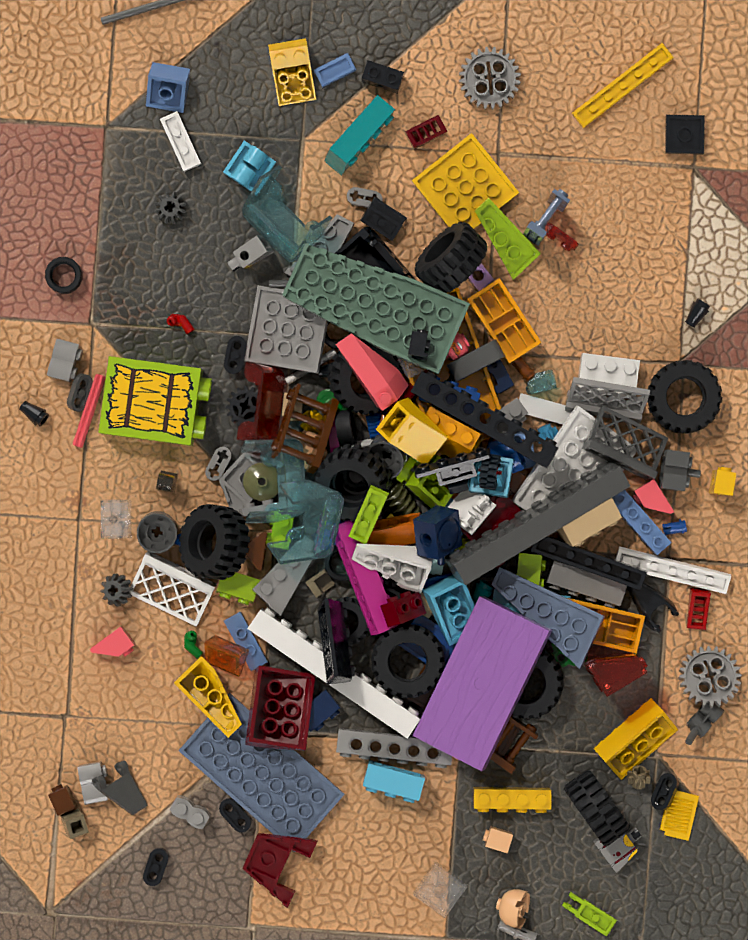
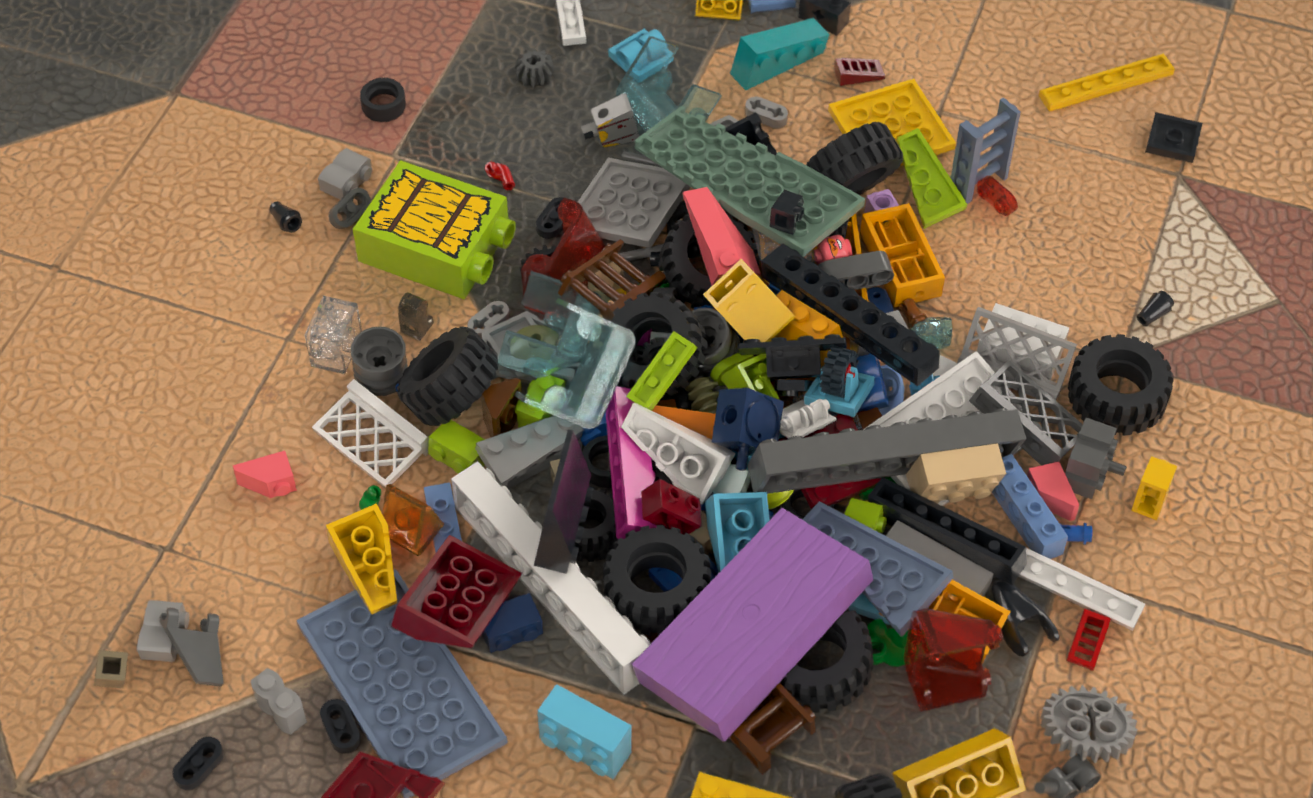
camera: 15 degrees right, 35 degrees down
(62, 799) = (109, 635): reddish brown brick -> none
(89, 410) = (339, 244): coral axle -> none
(110, 585) = (299, 414): dark grey gear -> none
(345, 749) = (593, 684): light grey brick -> none
(383, 218) = (784, 130): black plate -> none
(506, 76) = (966, 44): light grey gear -> none

